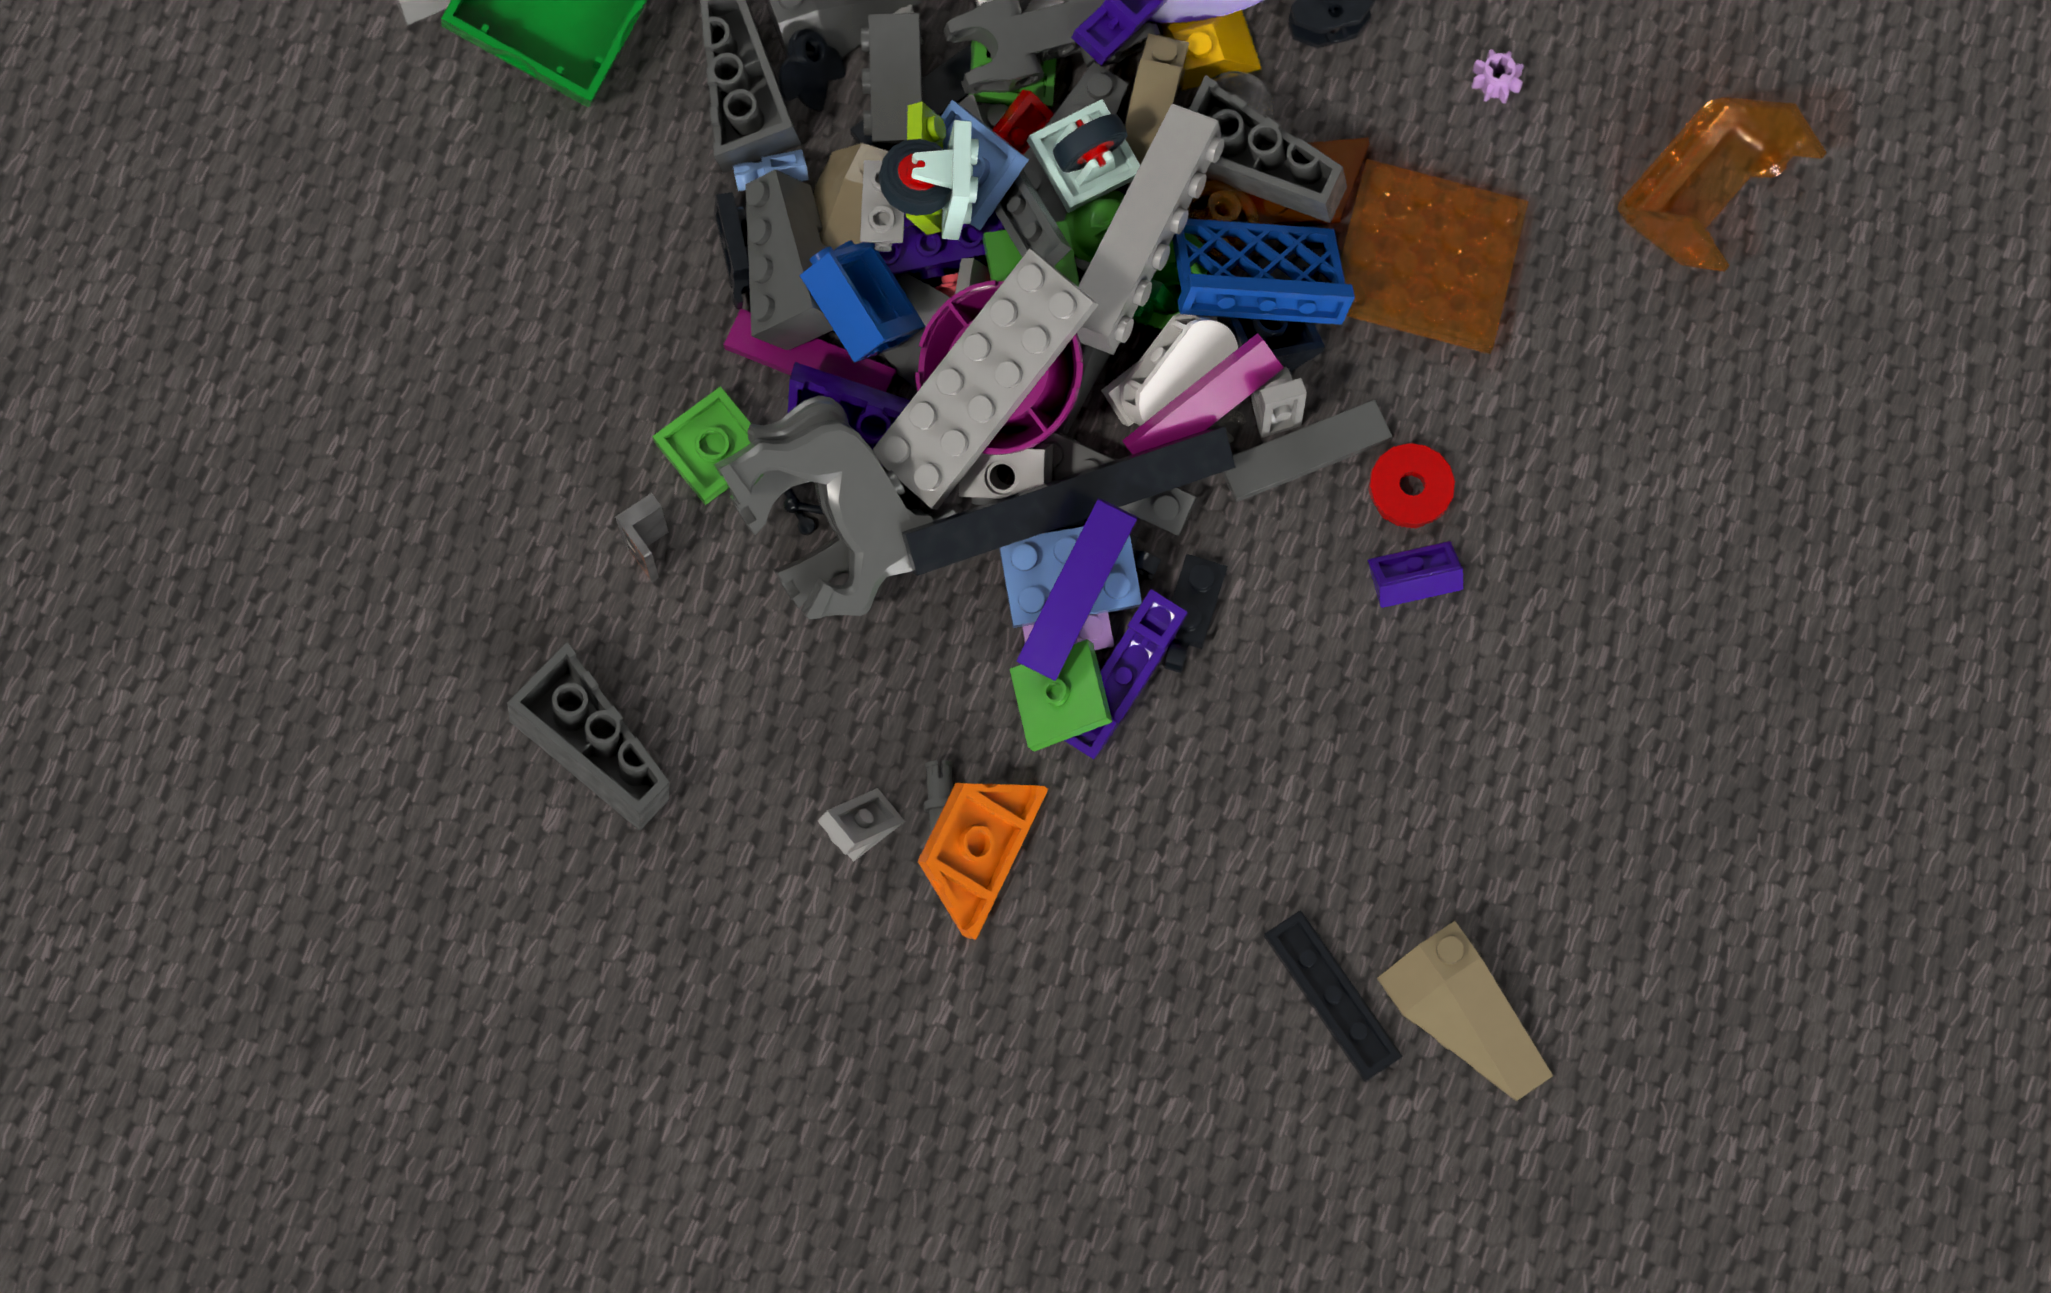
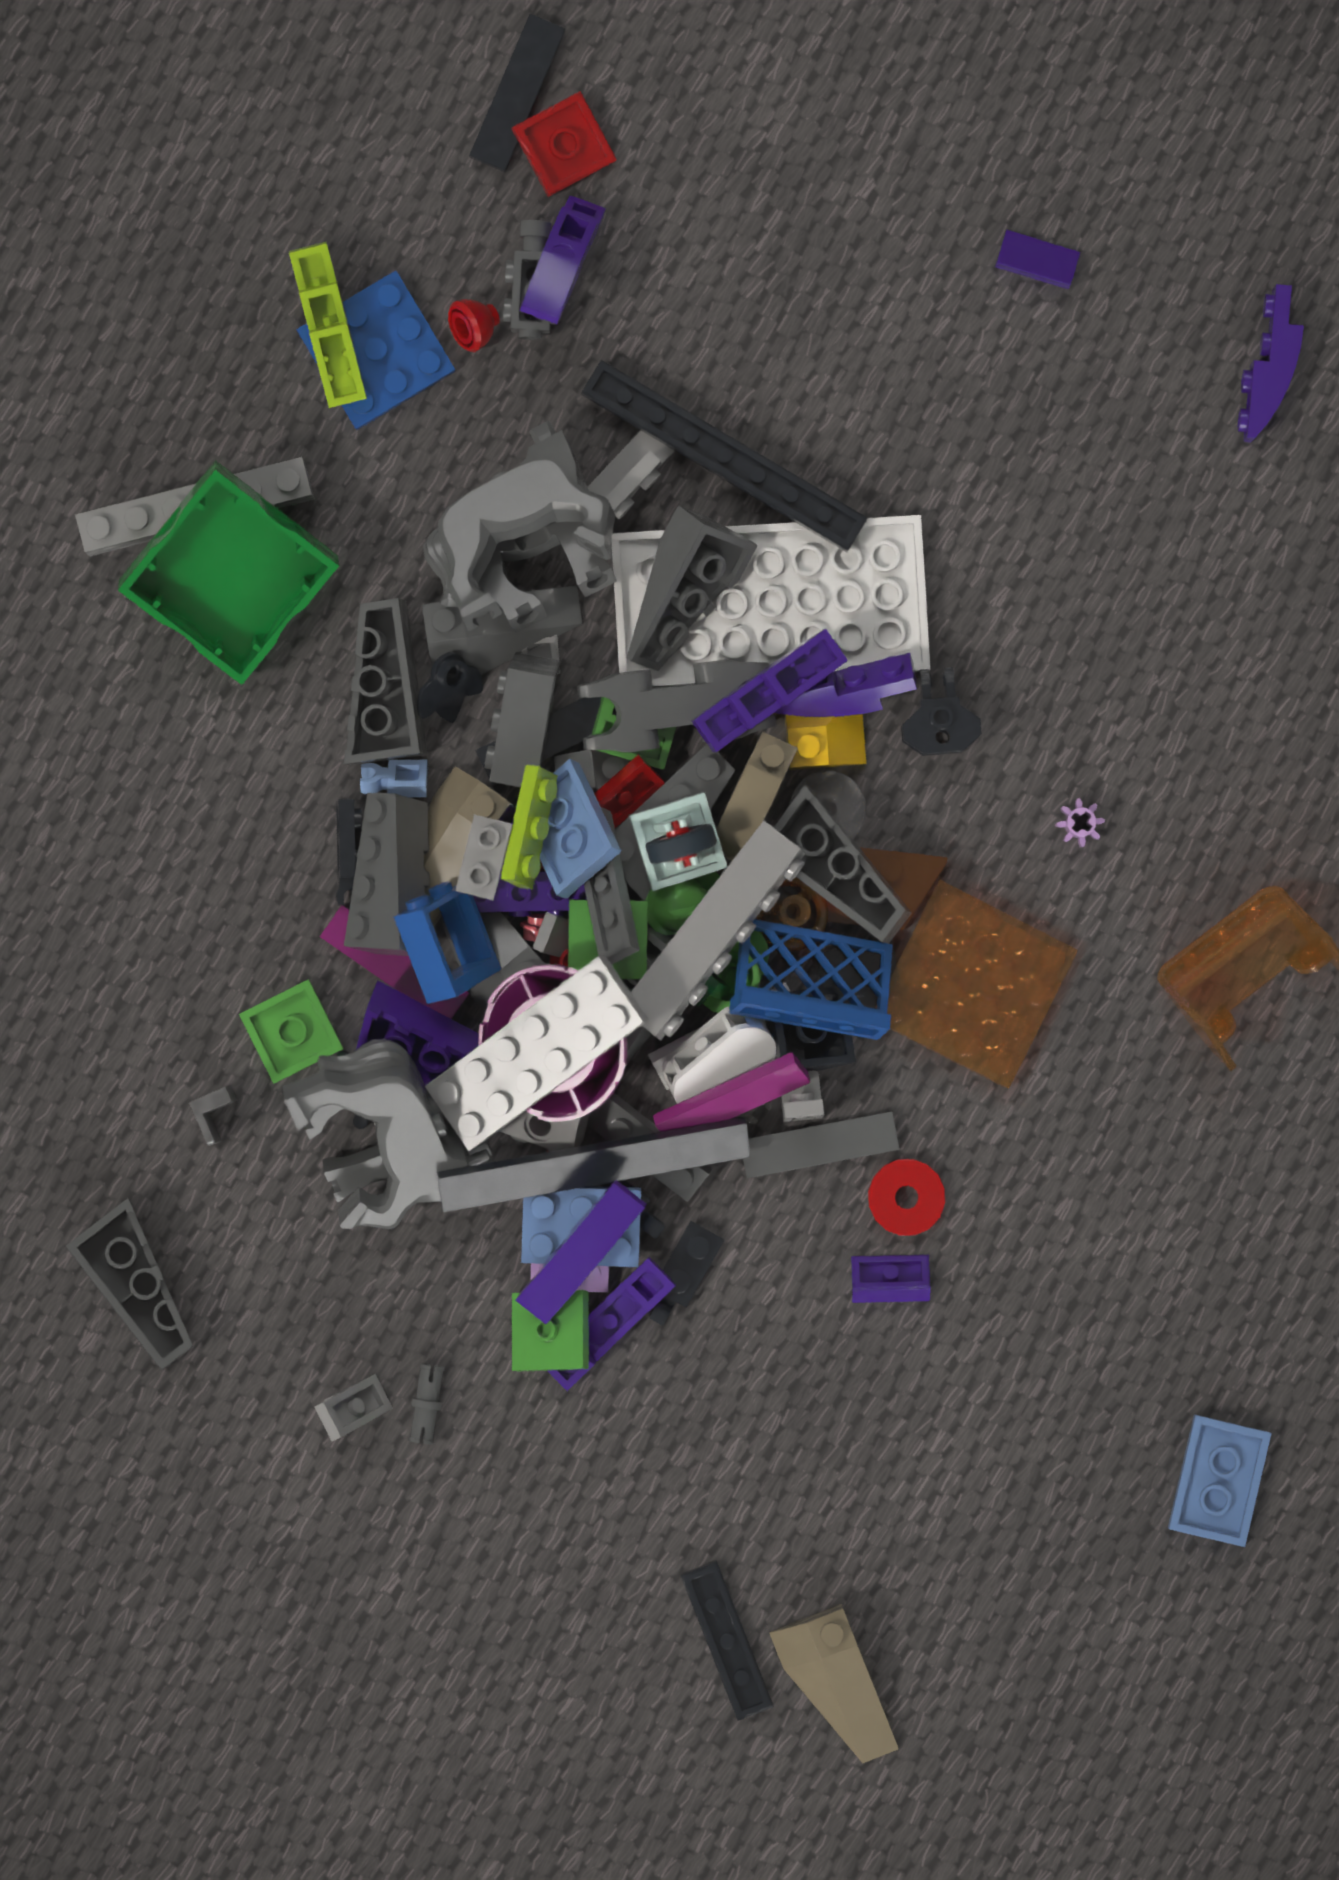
camera: 10 degrees right, 15 degrees up
(924, 178) = (523, 856): plate -> none
(976, 847) = (450, 1449): orange wing -> none
(1826, 709) = (1219, 1480): none -> medium blue plate

